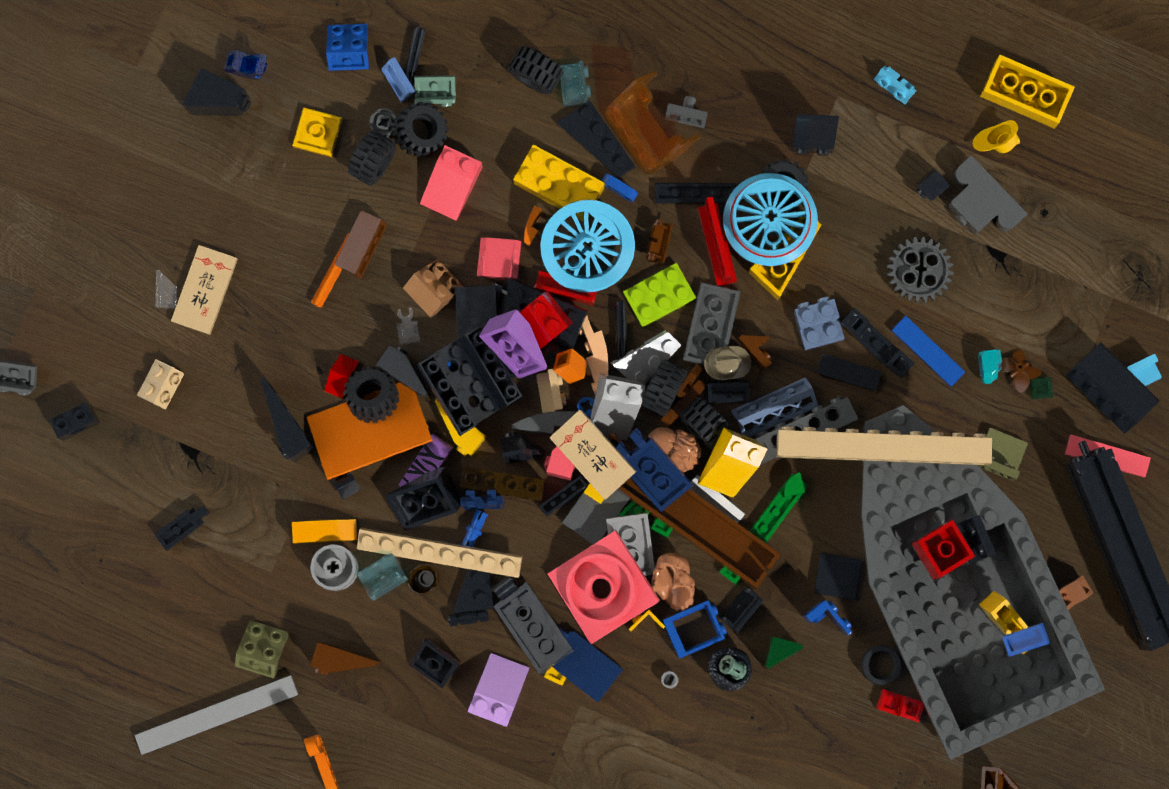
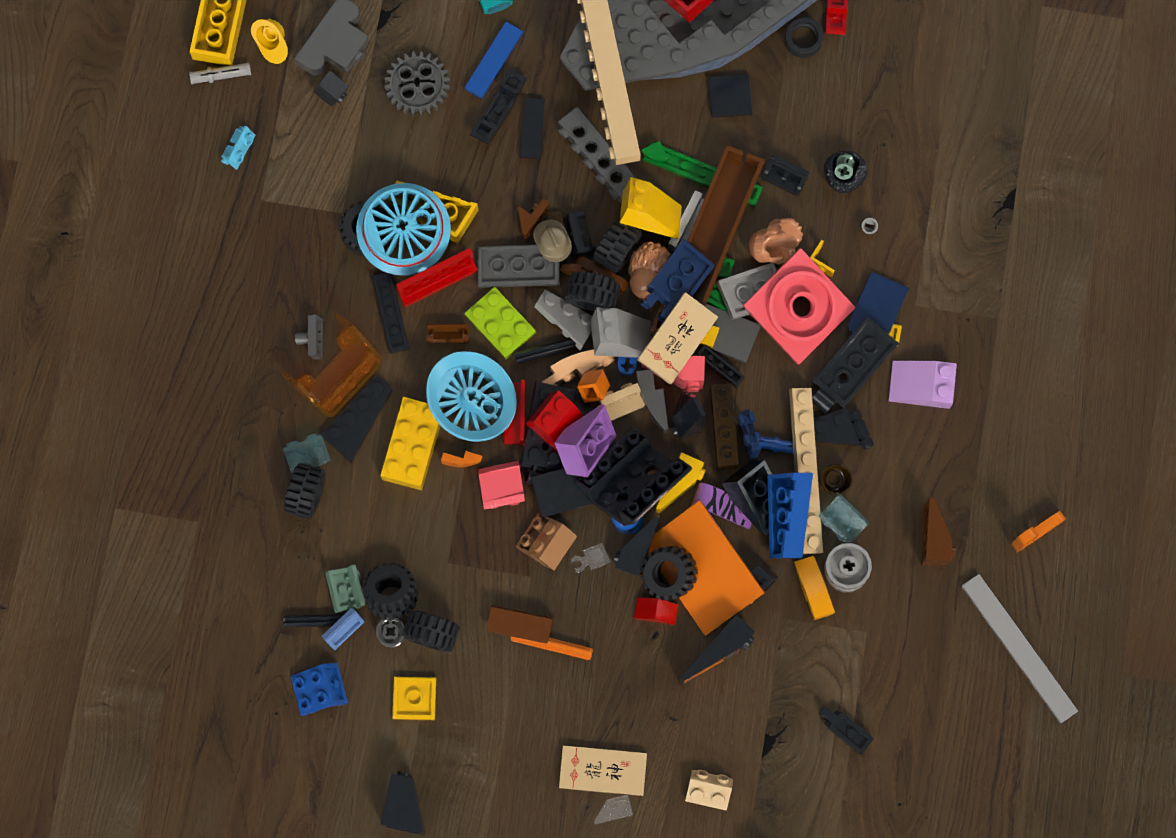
camera: 105 degrees left, 5 degrees down
(246, 65) = (362, 785): clear blue brick -> none
(261, 649) = (944, 620): olive bracket -> none
(399, 522) = (788, 513): none -> blue wedge
(434, 663) = (912, 449): black slope -> none
(451, 183) = (436, 550): coral slope -> none
(619, 188) = (402, 384): blue beam -> none
(674, 637) = (830, 229): blue window -> none
(774, 404) = (581, 189): sand blue fence -> none
(779, 650) = (817, 129): dark green slope -> none
(814, 134) = (308, 208): black slope -> none
(817, 613) = (768, 100): blue bracket -> none
(818, 323) = (491, 166): sand blue plate -> none
(975, 59) = (211, 75): none -> light grey pin

